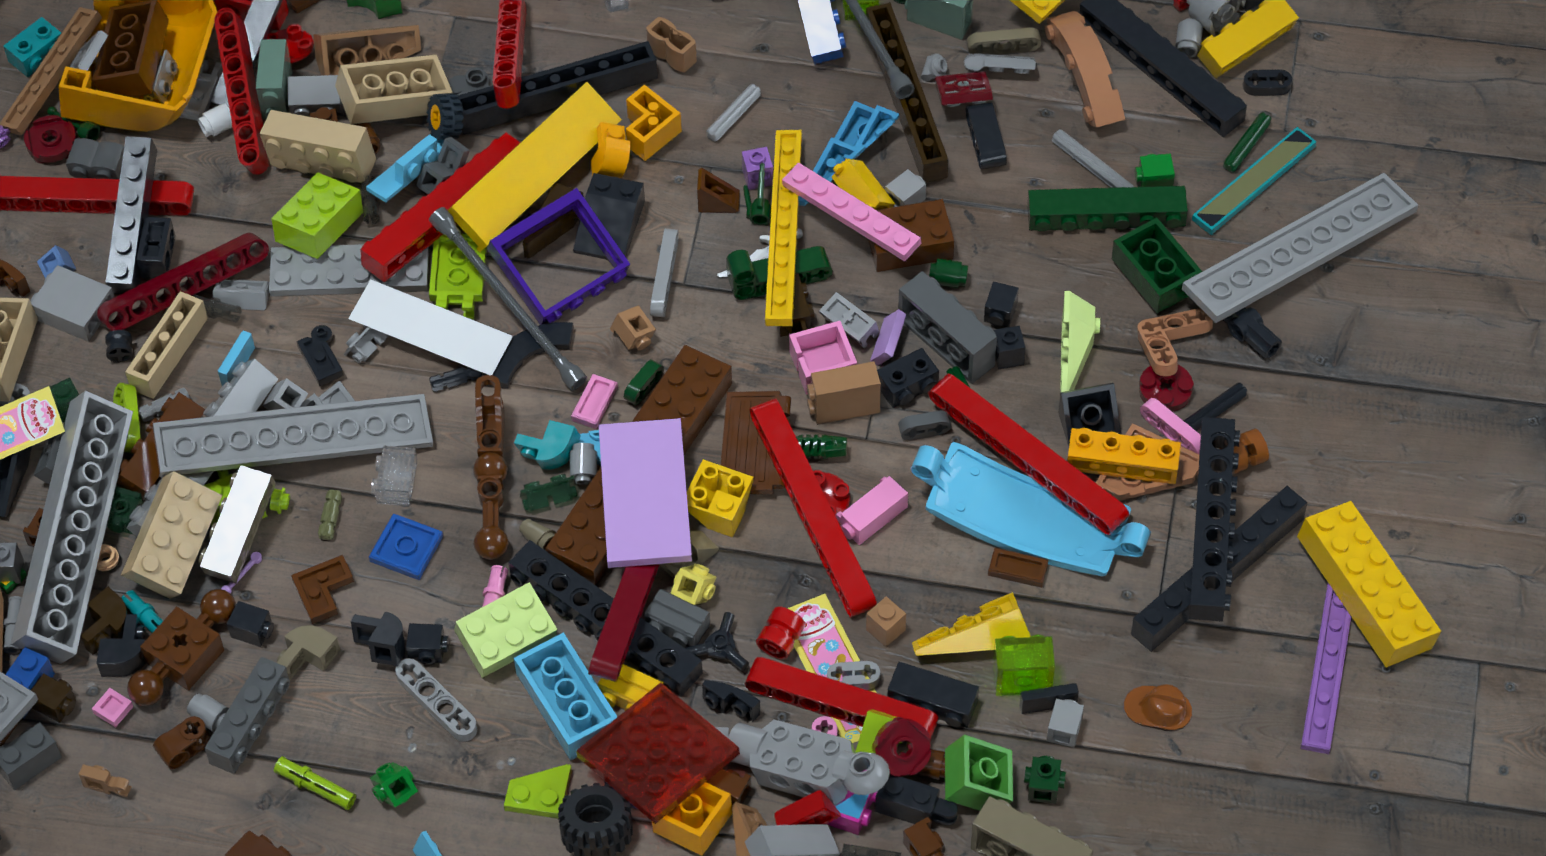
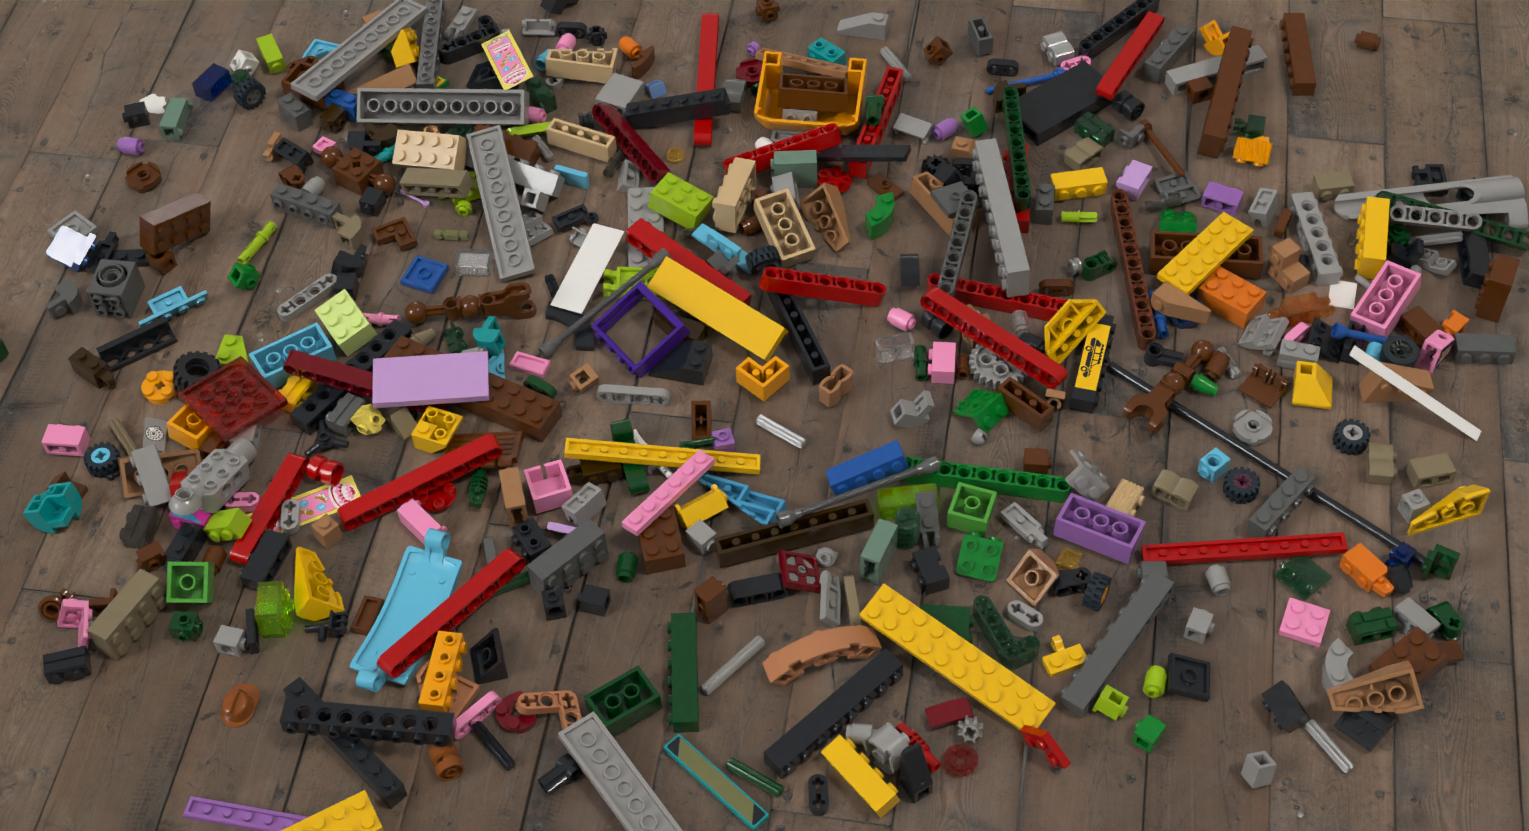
camera: 90 degrees right, 5 degrees down
(89, 51) = (799, 68): light grey tile -> none
(126, 746) = (293, 153): none -> black hinge
(155, 247) = (658, 127): black brick -> none
(205, 236) = (675, 155): none -> clear yellow tile
(612, 151) = (731, 353): light orange brick -> none
(723, 696) = (277, 453): black slope -> none
(918, 744) = (211, 539): dark red plate -> none
(1010, 173) = (711, 599): none -> reddish brown brick
(1038, 601) = (336, 624): none -> black arm
(1076, 338) = (560, 646): yellowish green wedge -> none
(1155, 170) = (720, 706): green brick -> none

